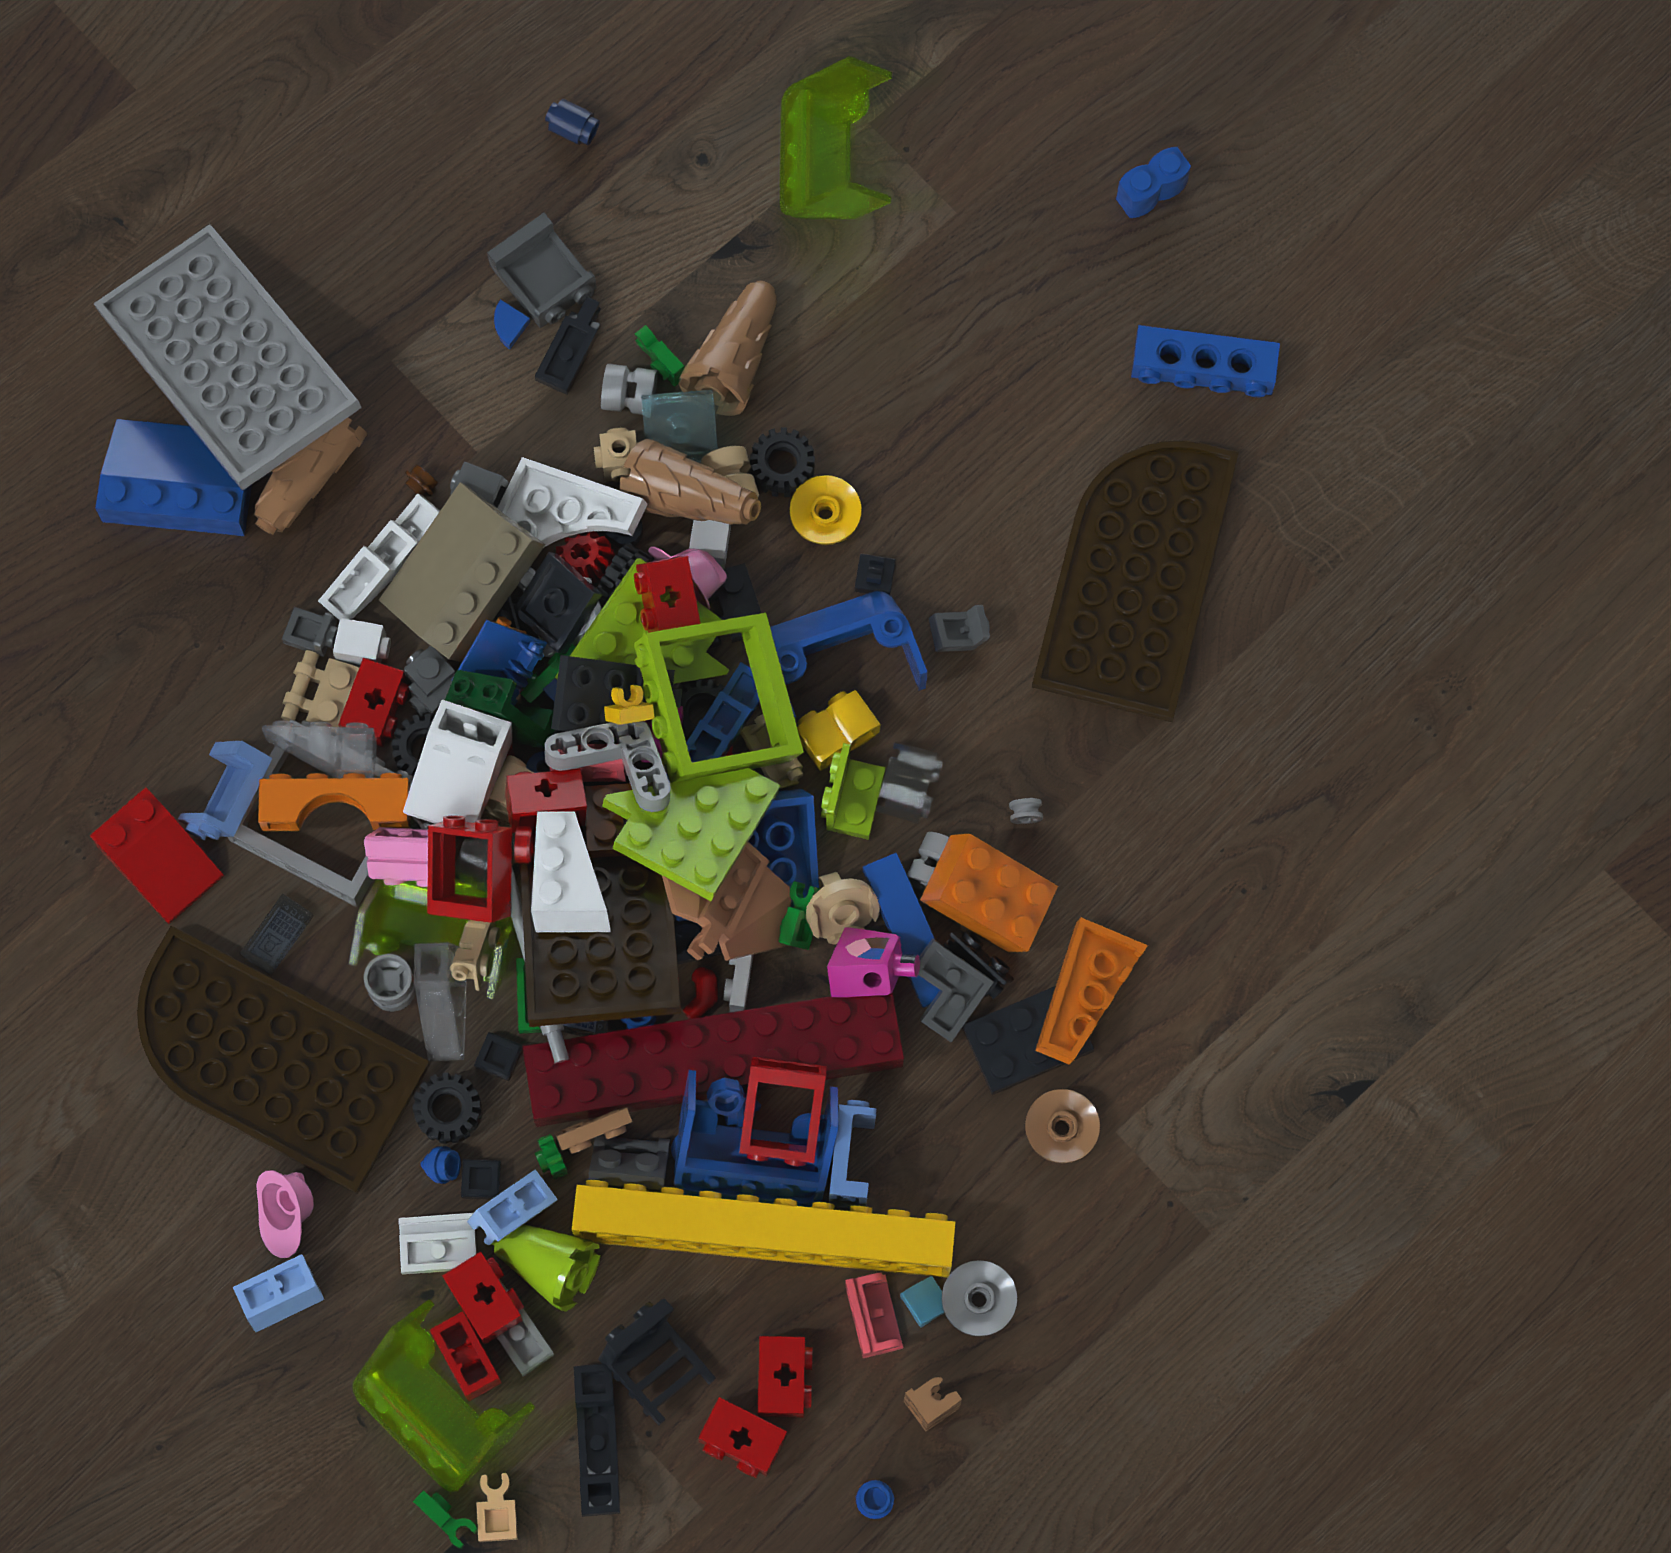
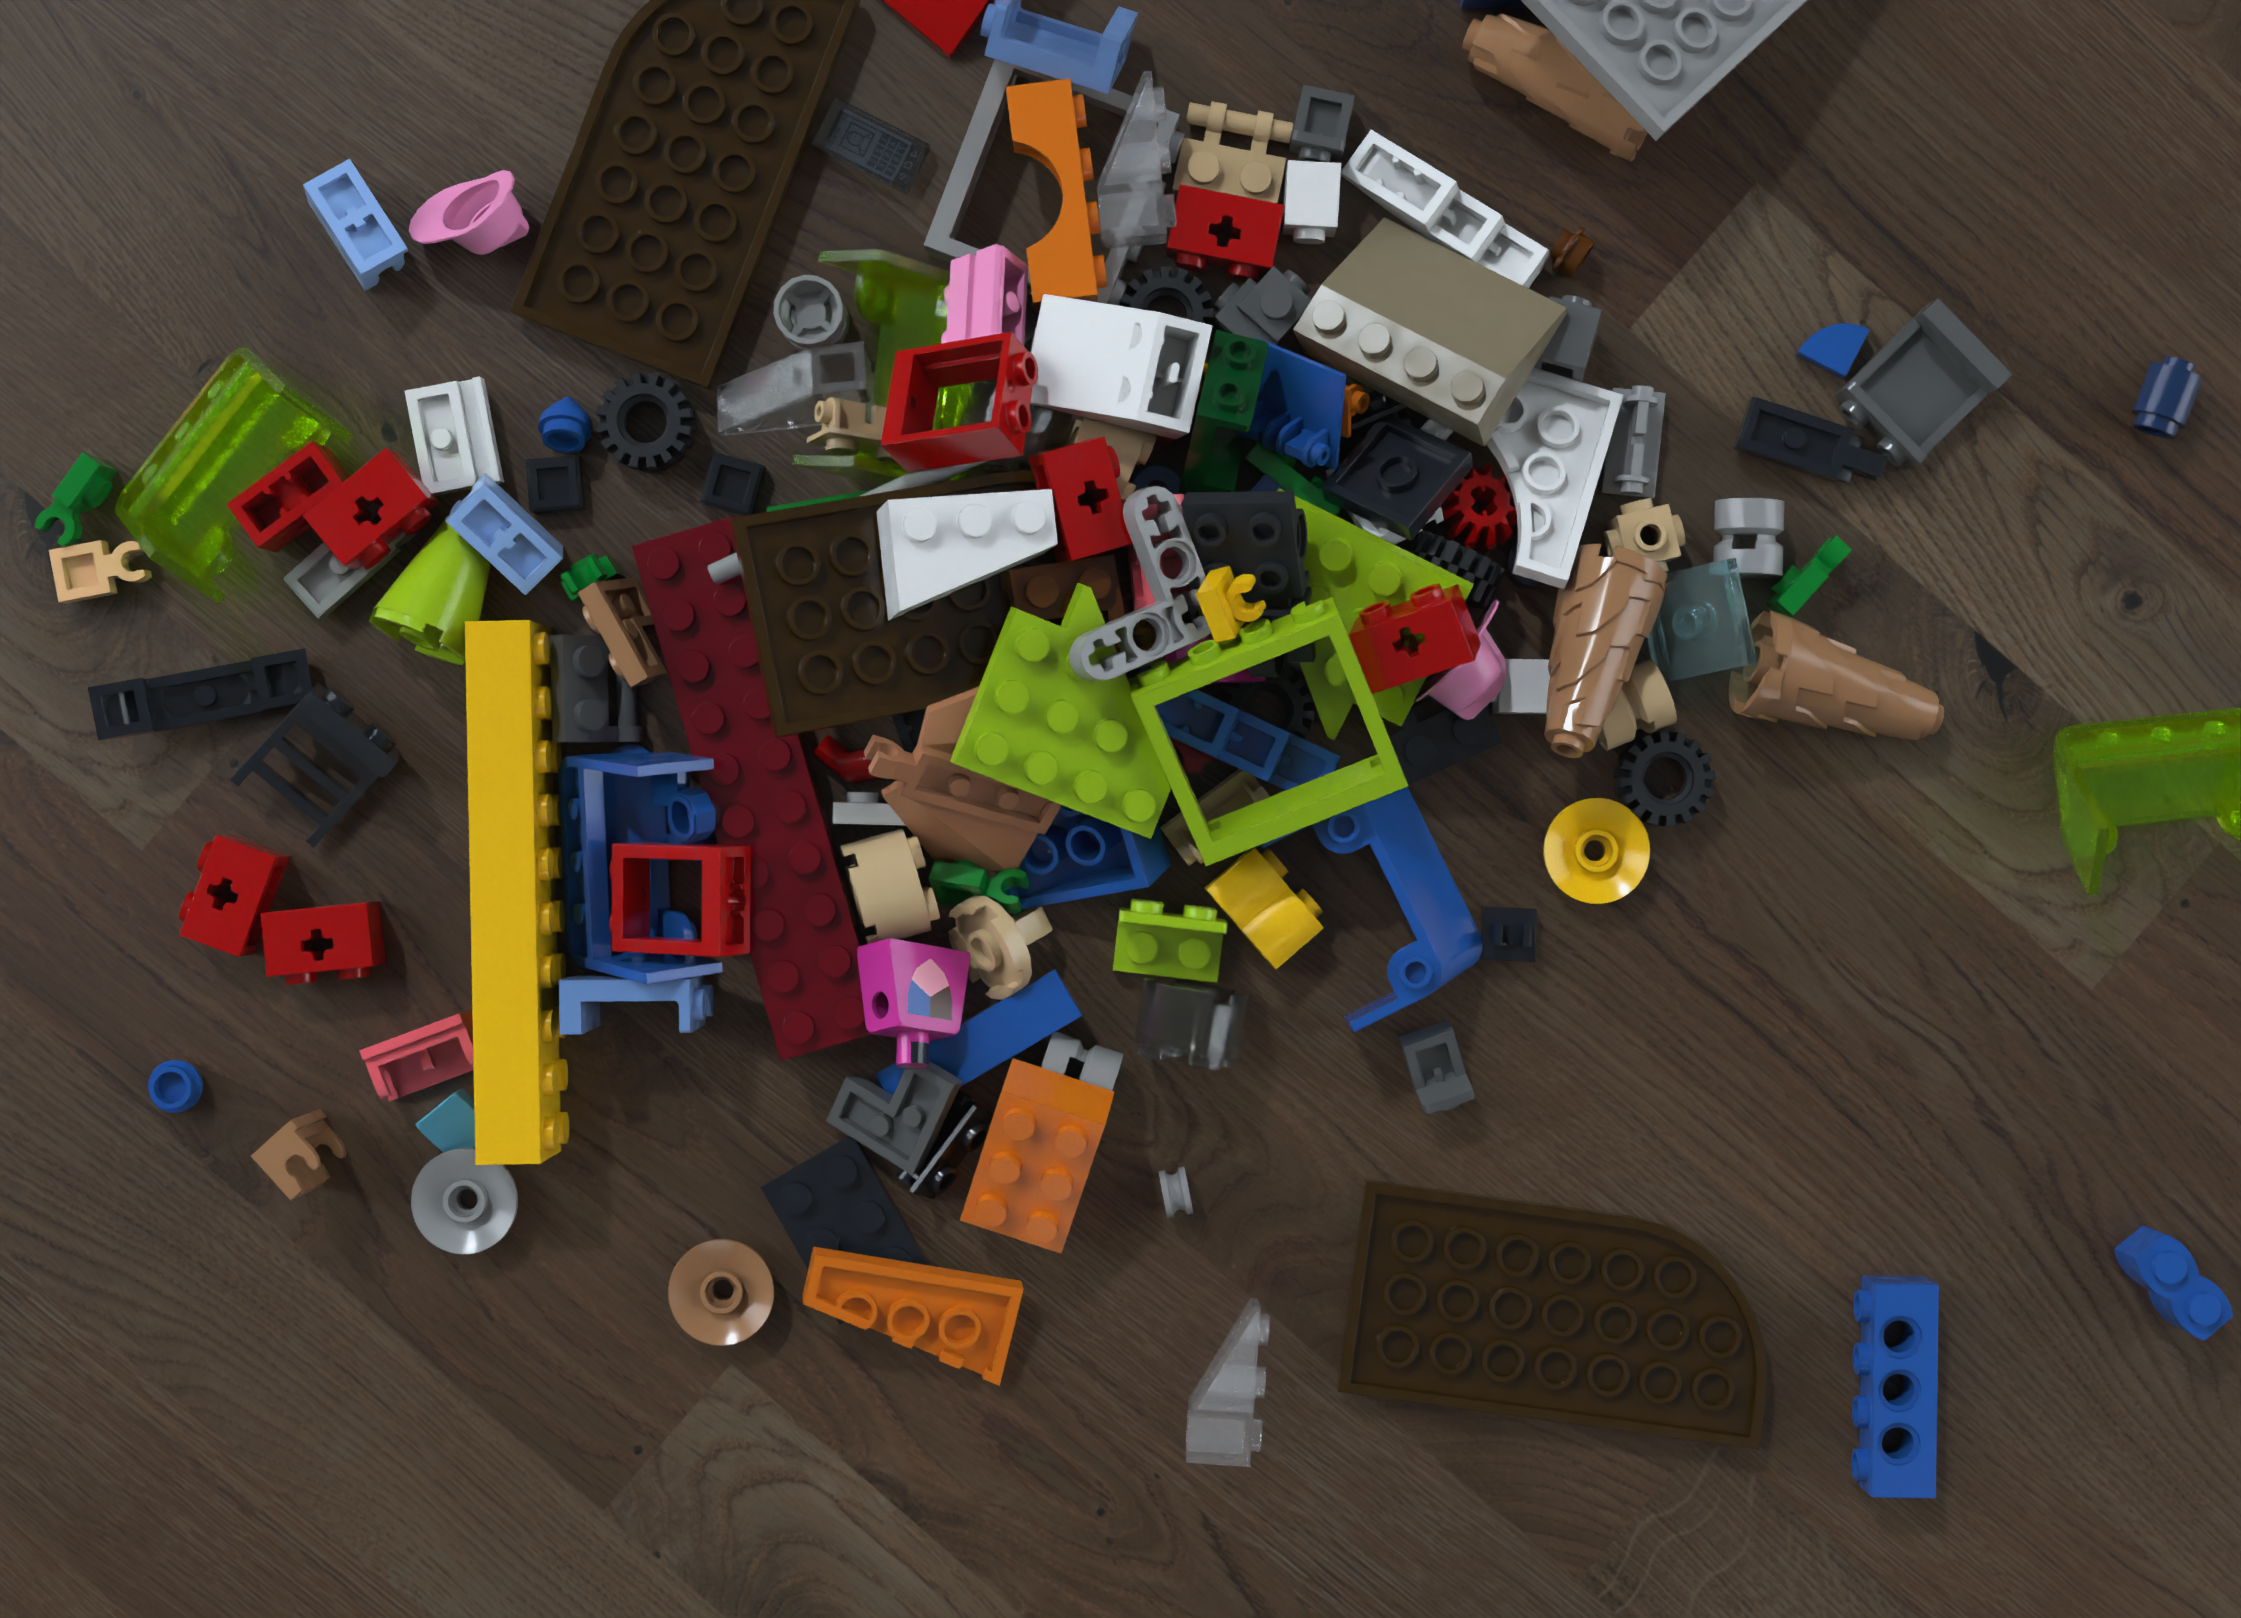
camera: 85 degrees right, 15 degrees up
(524, 844) = (1007, 476): red tile -> none
(555, 453) = (1635, 444): none -> light grey hinge
(791, 971) = (889, 887): none -> tan brick
(1174, 795) = (1222, 1403): none -> clear slope

